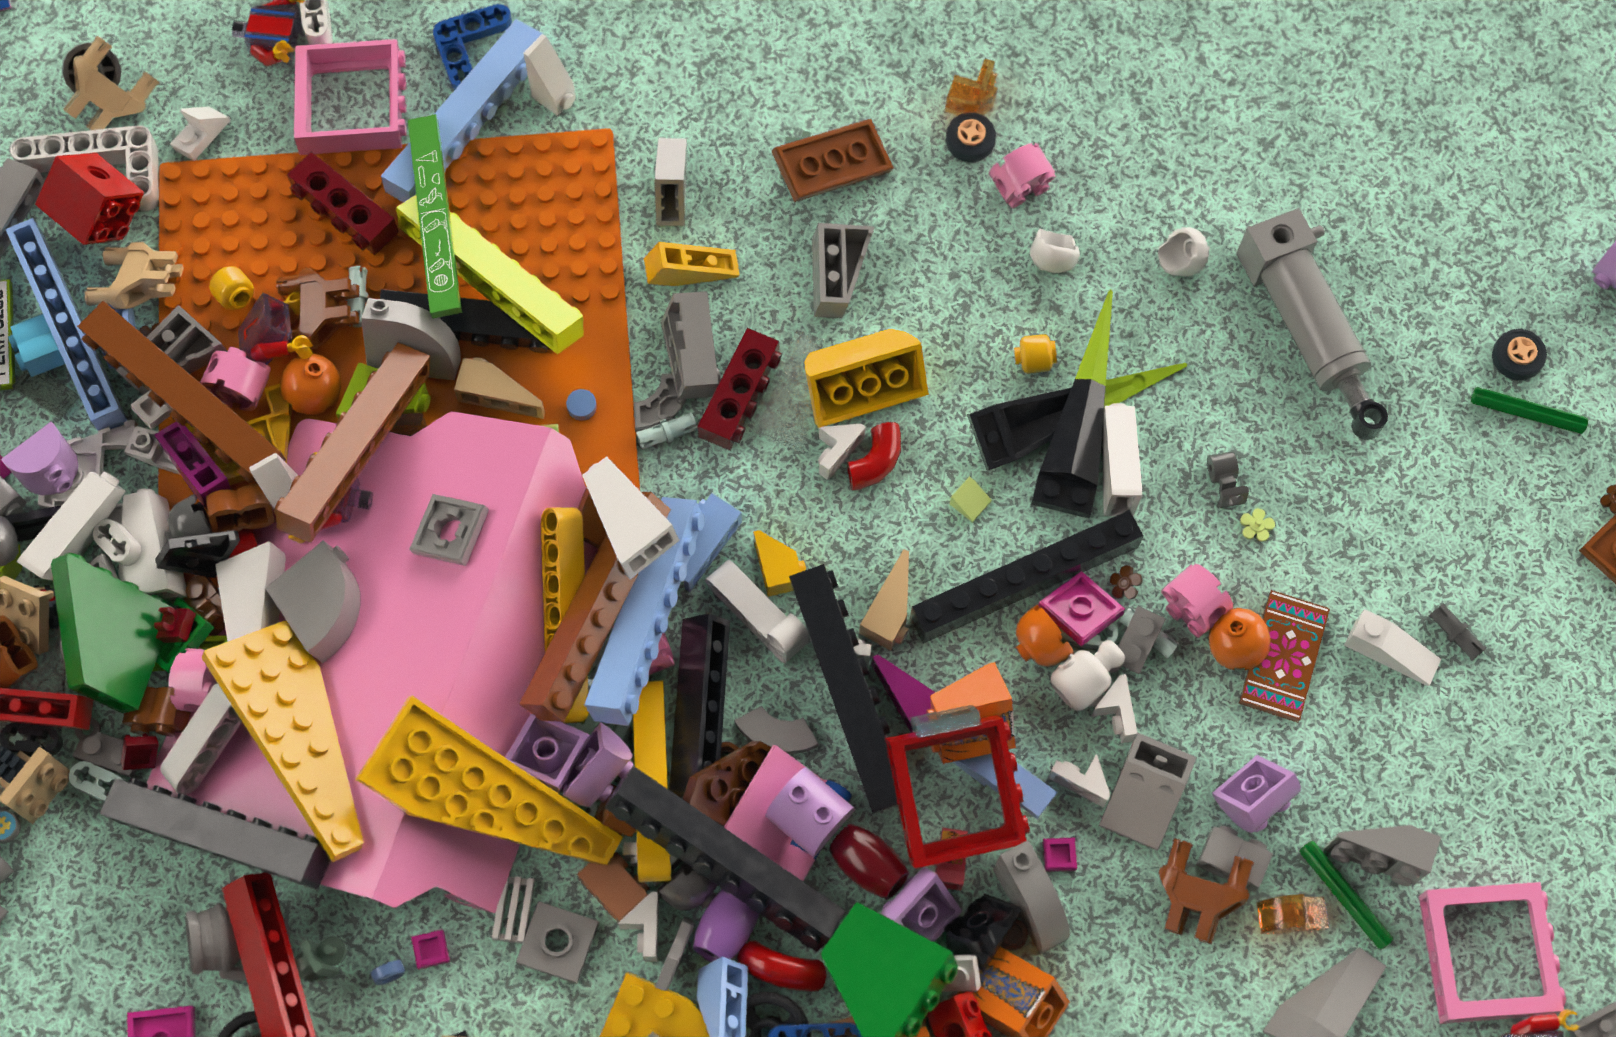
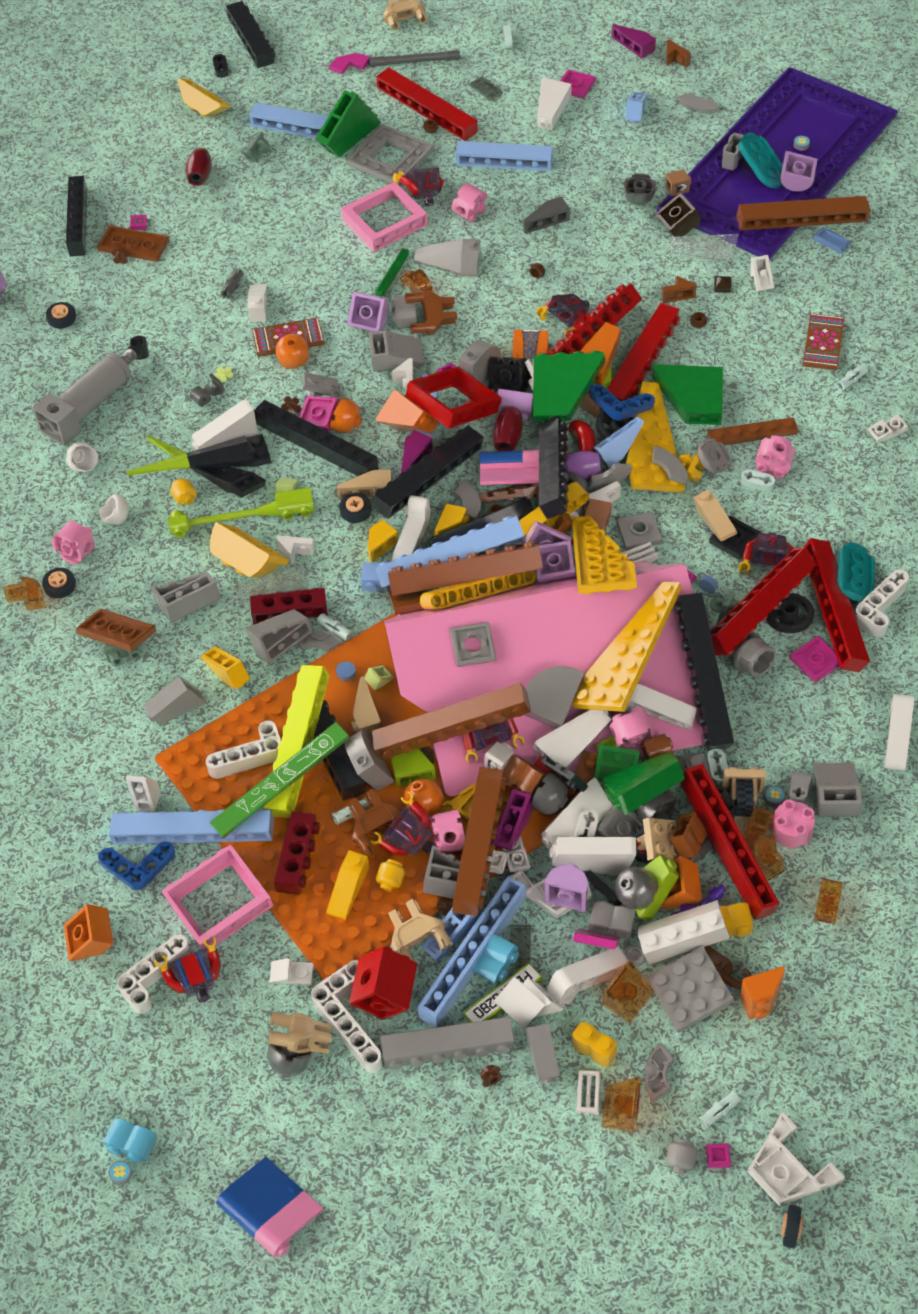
camera: 115 degrees left, 15 degrees down
(139, 752) = (687, 749): dark red tile -> none
(174, 624) = (611, 762): dark red tile -> none
(258, 240) = (348, 883): none -> yellow slope
(528, 215) = (222, 764): none -> white beam
(630, 519) = (412, 566): white slope -> none
(746, 679) = (451, 517): none -> yellow slope
(809, 811) = (503, 452): lavender brick -> none
(861, 577) = (355, 507): none -> black wheel
(880, 459) = (289, 527): red cylinder -> none
(926, 470) = (286, 505): none -> lime bar
(945, 721) = (427, 398): clear light blue tile -> none
(1085, 676) = (355, 390): white piece -> none
(1118, 702) = (359, 380): white slope -> none
(1196, 599) = (284, 369): bright pink brick -> none
(1395, 851) = (363, 257): light grey slope -> none
(1529, 410) = (90, 301): green axle -> none

